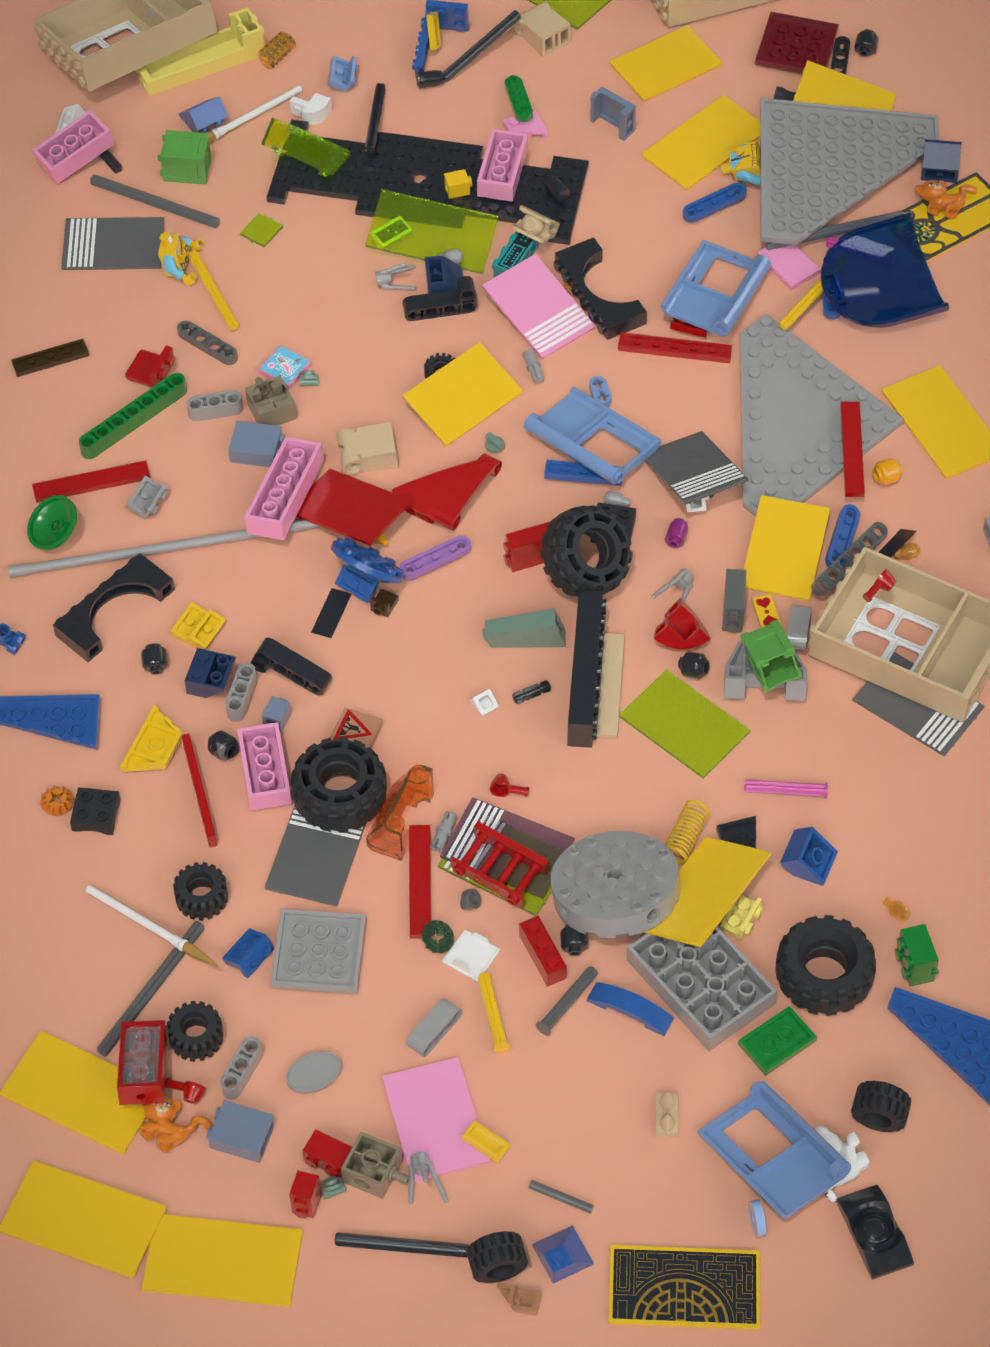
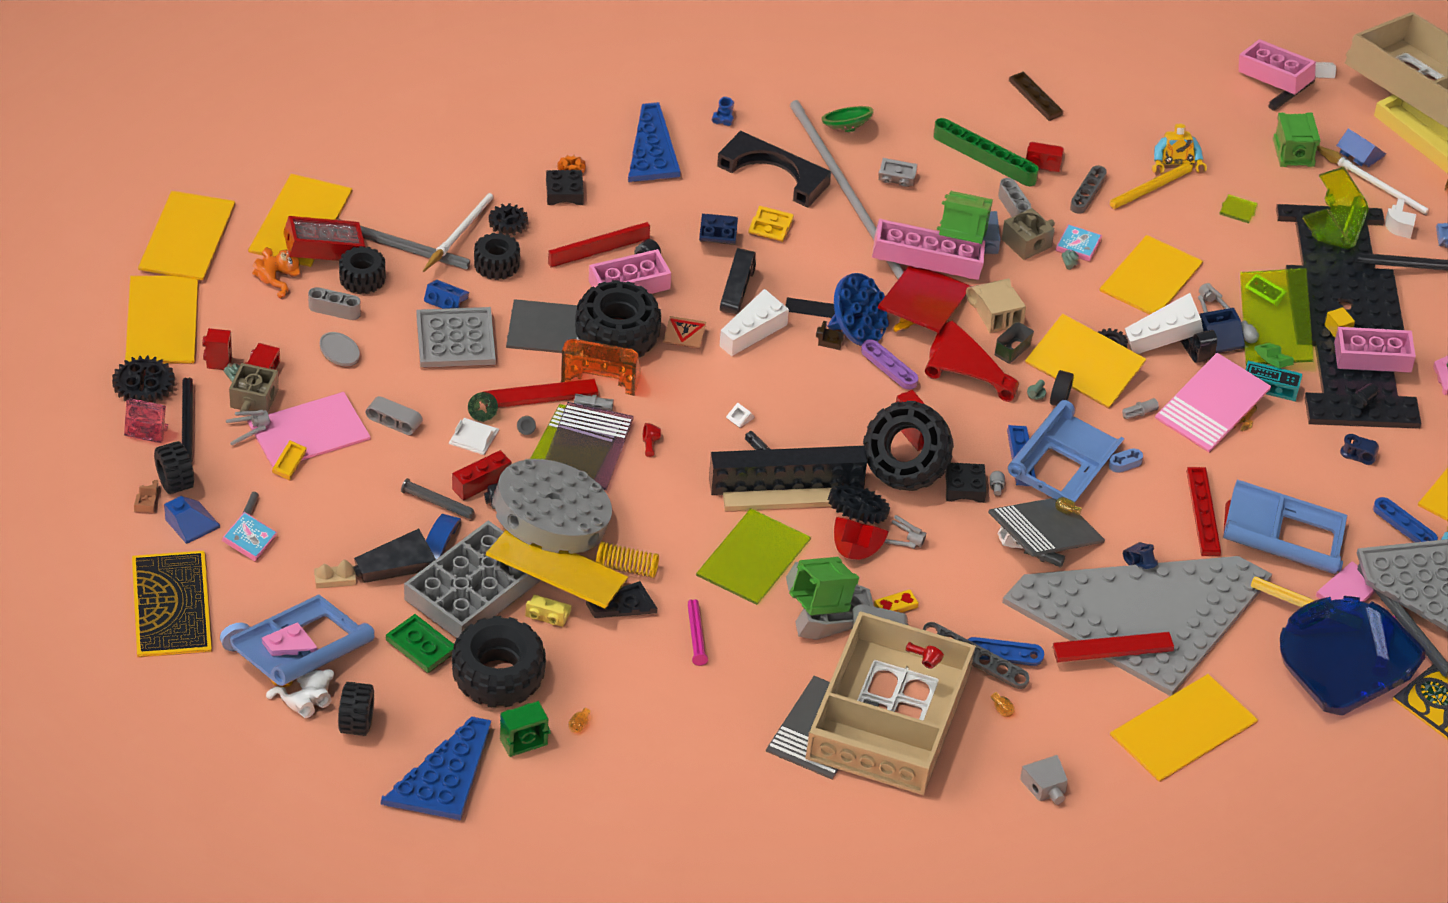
camera: 75 degrees right, 10 degrees down
(91, 481) = (907, 139): red tile -> none
(112, 243) = (1187, 106): dark grey piece -> none
(138, 873) = (508, 219): none -> black gear
(153, 744) = (634, 211): yellow wing -> none
(154, 658) = (726, 199): black head -> none
(155, 201) = (1243, 134): dark grey axle -> none
(191, 1091) = (308, 279): red bar -> none
(241, 1131) = (275, 311): sand blue brick -> none
(243, 684) = (706, 256): light grey beam -> none
(264, 439) = (965, 217): none -> bright green container
(277, 711) = (689, 281): sand blue brick -> none
(325, 1304) = (157, 381): none -> black gear
(343, 319) = (1151, 275): none -> yellow piece
(354, 663) = (753, 323): none -> white wedge
(409, 1285) = (145, 420): none -> clear pink plate
(432, 441) = (1016, 332): none -> dark grey piece
(436, 306) = (1165, 326): none -> white wedge
(485, 246) = (1272, 354): none -> bright green slope
(493, 1014) = (416, 452): yellow axle -> none
(500, 425) = (1061, 387): none -> black tyre
(501, 845) = (575, 446): red fence -> none
(526, 630) = (820, 424): sand green slope -> none
(536, 225) = (1303, 381): tan piece -> none
(600, 1193) = (249, 536): none -> tile
(608, 316) = (1276, 424): black arch -> none
(617, 212) = (1361, 449): none -> dark blue piece
(624, 618) = (858, 503): none -> black gear
(661, 1045) = (394, 559): none -> black slope
(664, 447) = (1067, 506): none -> clear yellow cylinder
(676, 533) = (969, 527): magenta brick -> none
(693, 665) = (817, 548): black head -> none
(733, 404) = (1140, 555): none -> dark blue piece
(734, 600) = (894, 568): dark grey brick -> none
(785, 547) = (979, 607): yellow piece -> none
(785, 1159) = (288, 641): none -> bright pink wing
(809, 855) = (621, 651): blue slope -> none
(875, 1231) = (239, 726): black slope -> none
(887, 471) = (1095, 678): light orange head -> none
(897, 542) = (1003, 691): black sticker -> none

